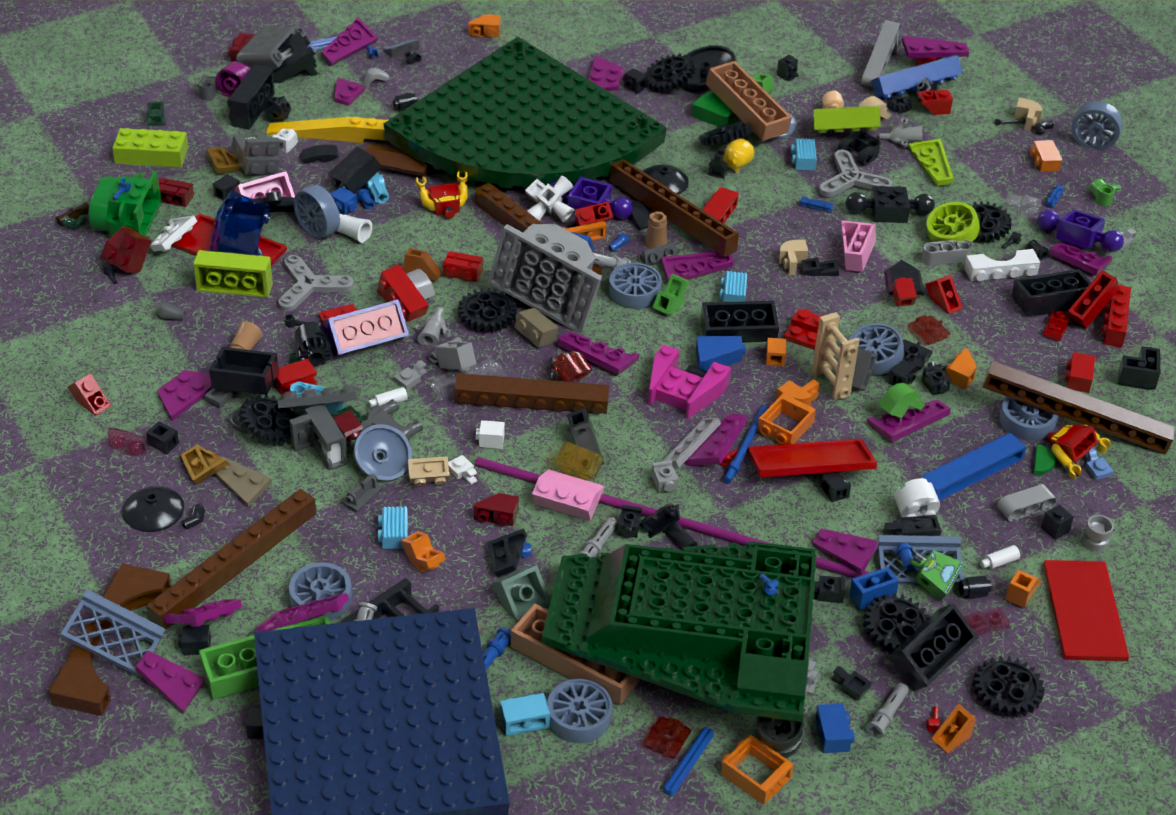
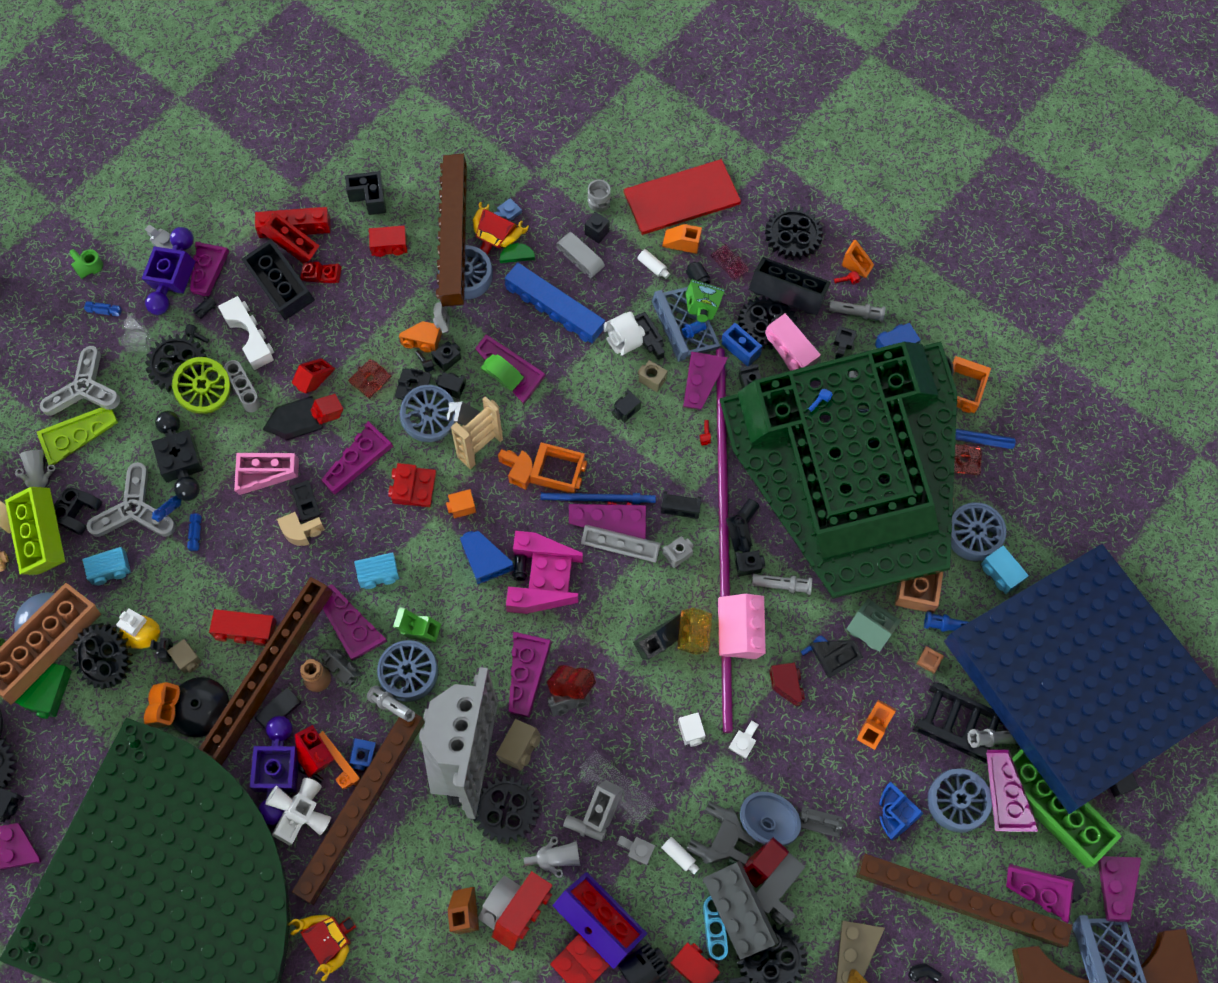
camera: 110 degrees left, 25 degrees up
(337, 549) = (898, 811): none -> blue brick
(394, 527) = (853, 768): medium azure brick -> none
(428, 470) = (767, 768): tan bracket -> none
(463, 266) = (443, 866): red brick -> none
(531, 393) = (620, 714): reddish brown brick -> none
(621, 240) = (335, 712): blue arm -> none
(672, 156) = (161, 705): none -> orange brick
(707, 177) = (184, 656): none -> dark tan brick
(712, 494) = (680, 505): none -> black hinge
(743, 139) = (131, 622): none -> white tile
(749, 319) = (433, 548): black brick -> none
(777, 537) = (705, 438): none -> red hand
(811, 458) = (603, 433): red tile -> none
(840, 186) = (166, 508): none -> blue axle
(849, 304) = (364, 451): none -> magenta wing
(851, 617) = (791, 344): none -> bright pink wedge
(862, 514) = (656, 382): none -> dark tan brick
(972, 167) = (85, 376): none -> light grey piece
(974, 375) = (441, 317): none -> light grey hinge
(1046, 155) = (34, 326): orange brick -> none

